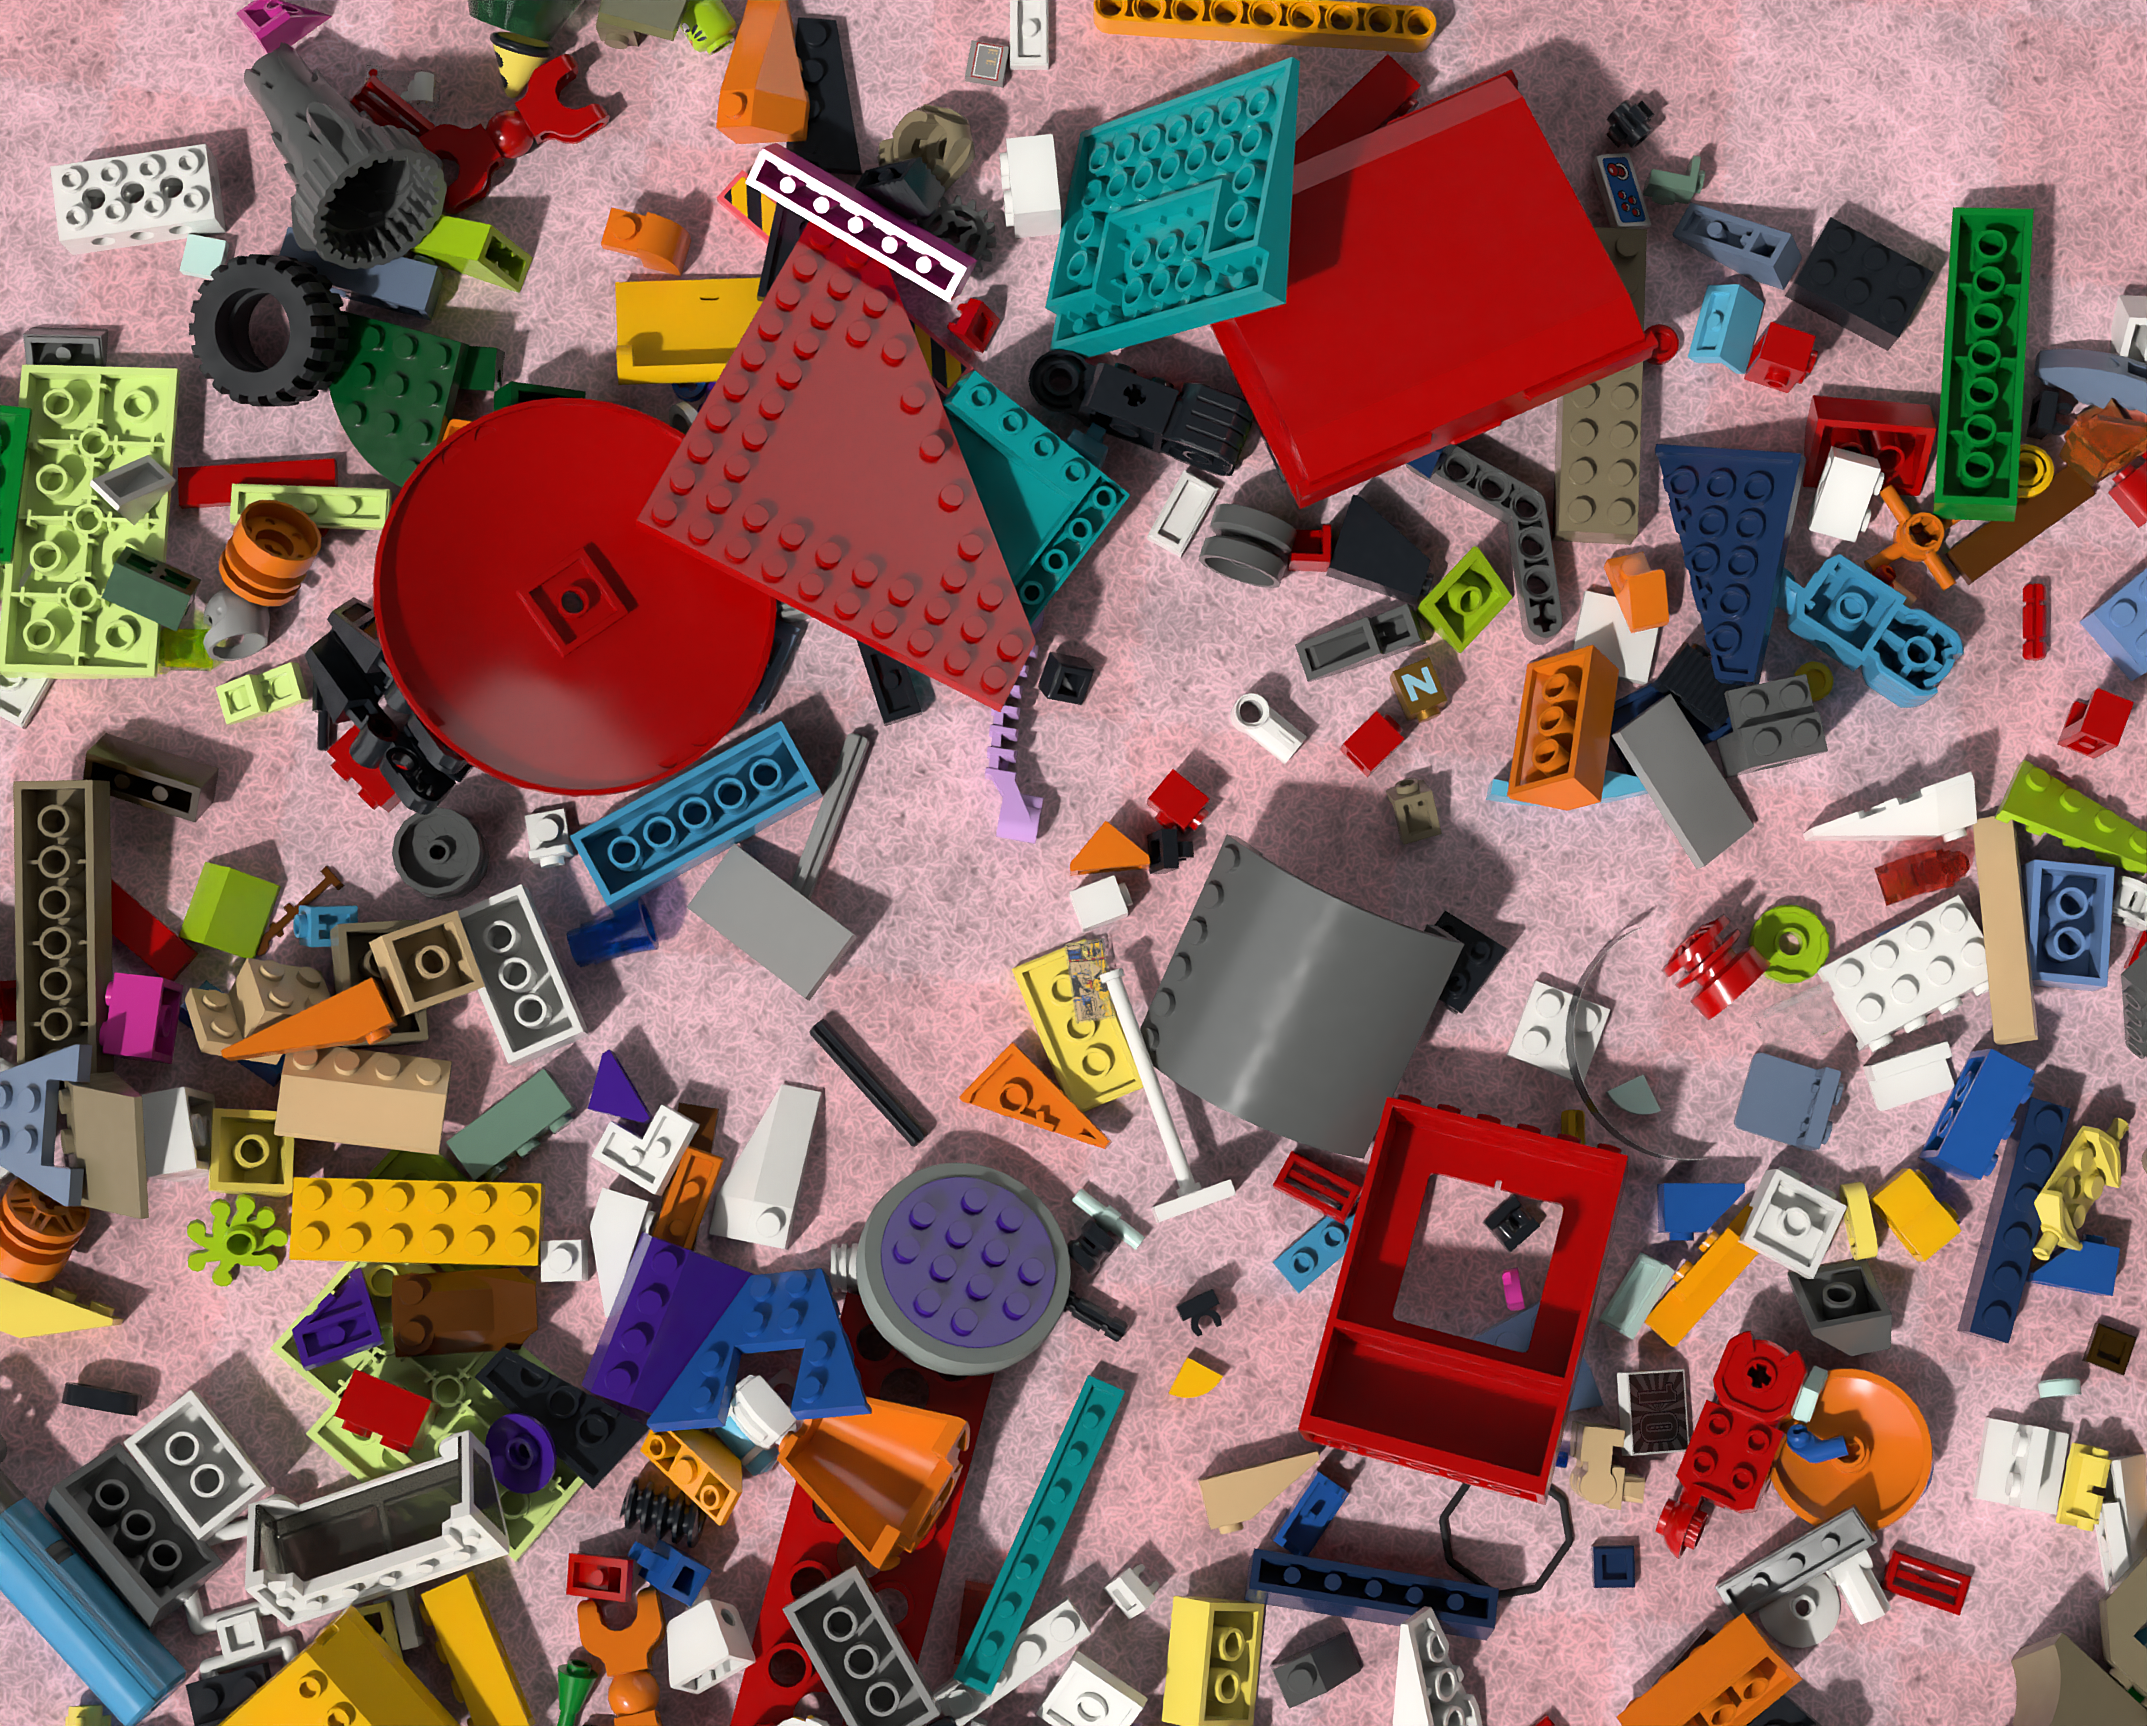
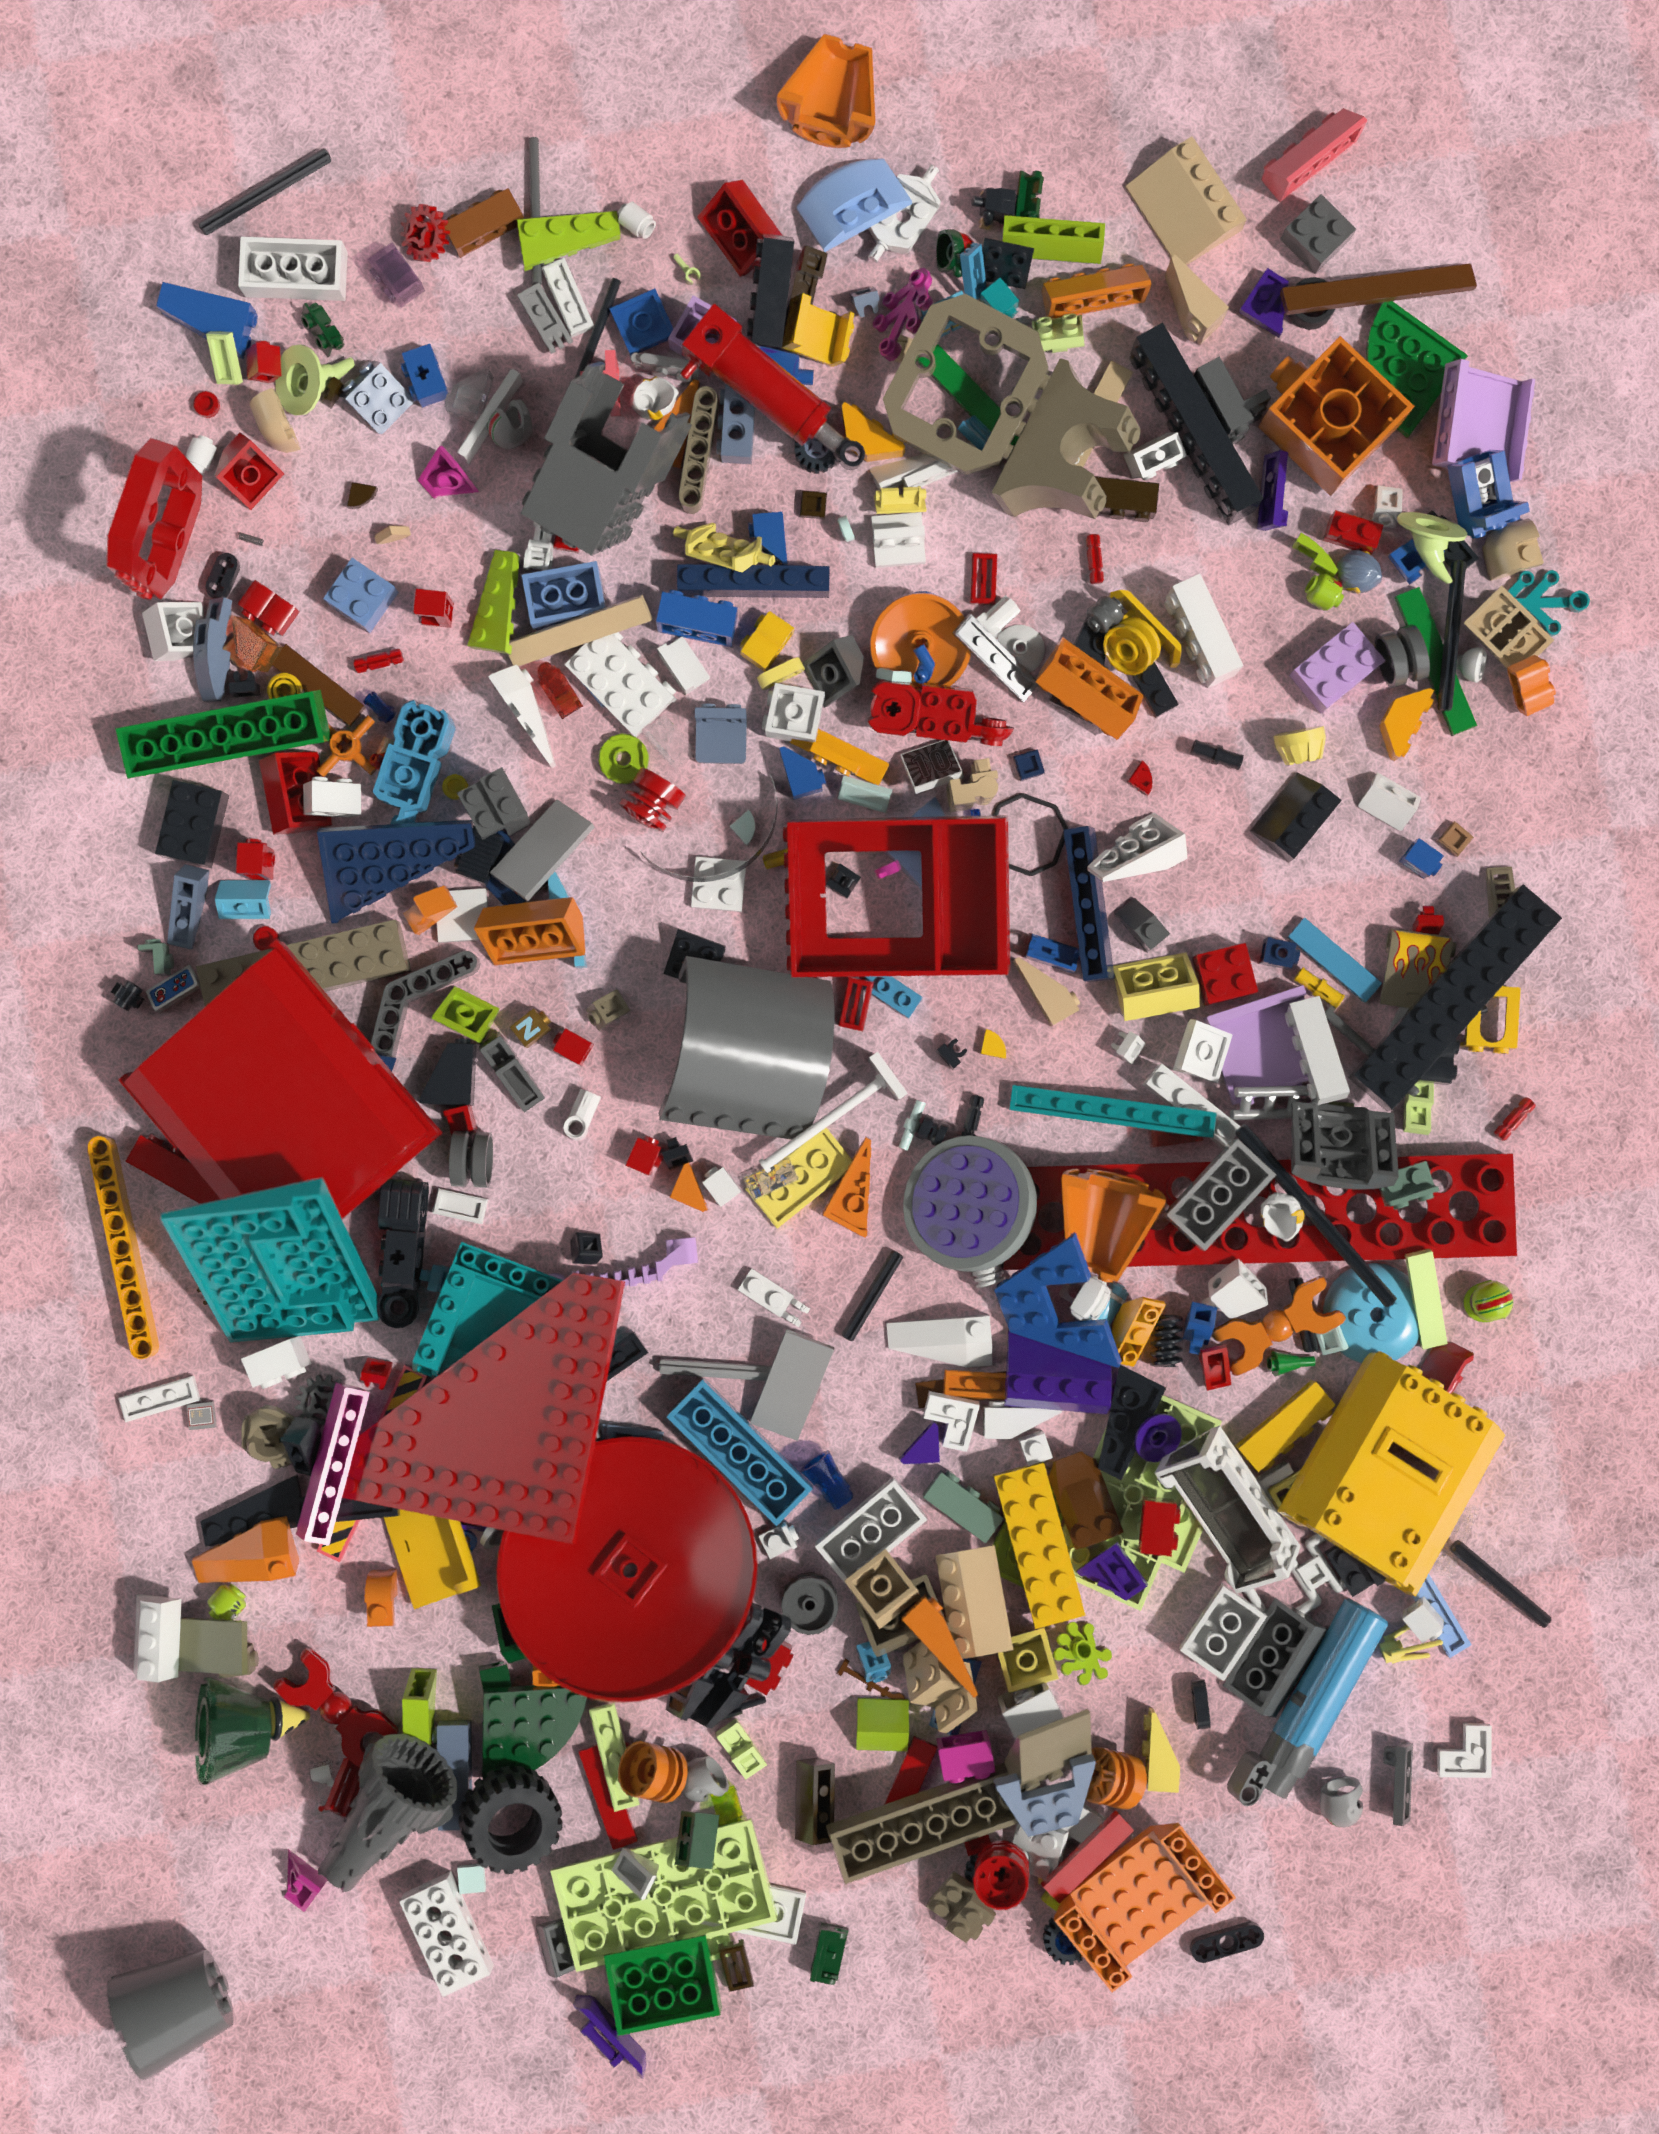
camera: 105 degrees left, 5 degrees up
(912, 931) = (771, 1296): none -> white hinge
(1956, 607) = (379, 707): none -> clear blue pin

